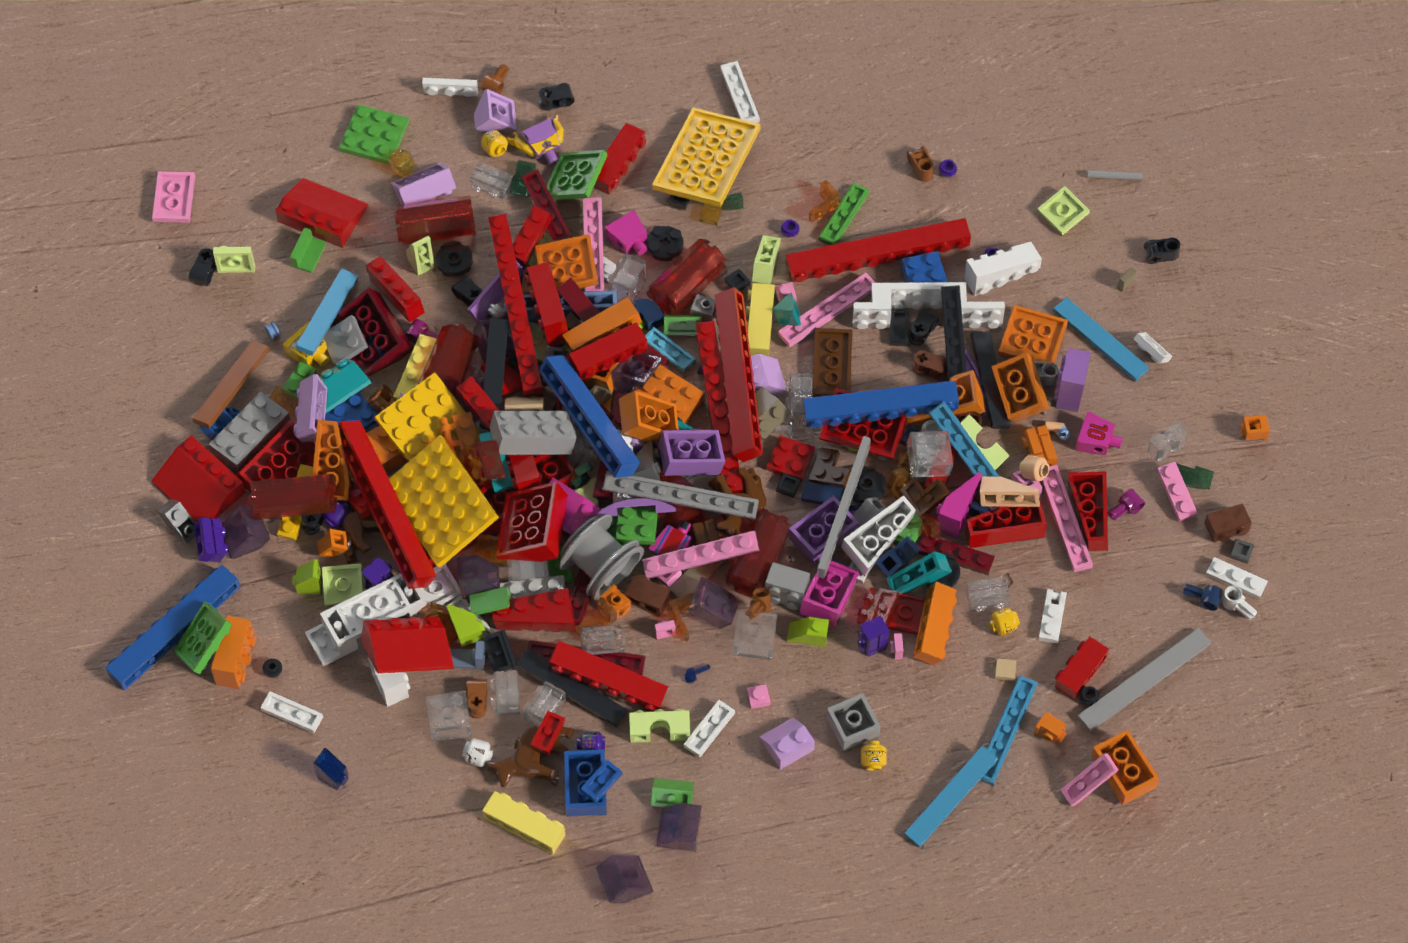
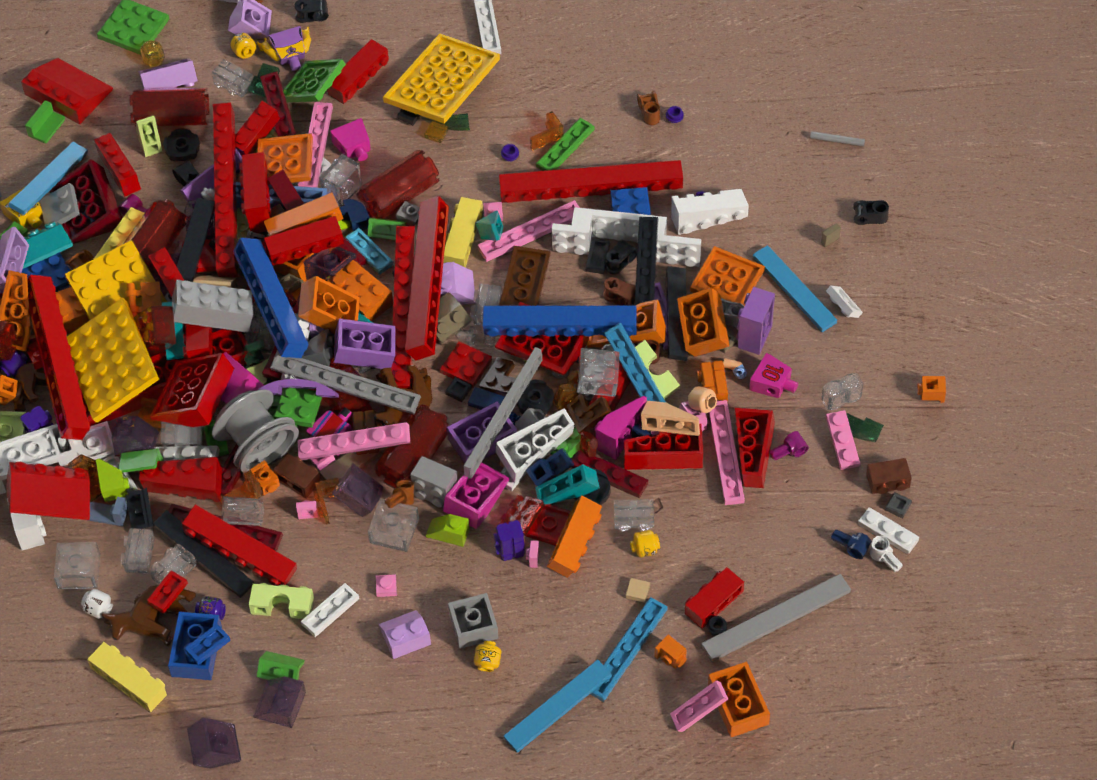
camera: 10 degrees right, 5 degrees down
(477, 696) = (109, 551): dark orange piece -> none
(665, 233) = (386, 144): black plate -> none
(691, 673) = (323, 555): clear blue hand -> none
(738, 280) = (449, 194): black plate -> none
(766, 260) = (479, 178): yellowish green slope -> none
(1052, 617) = (695, 545): white plate -> none
(1063, 210) = (780, 165): yellowish green plate -> none

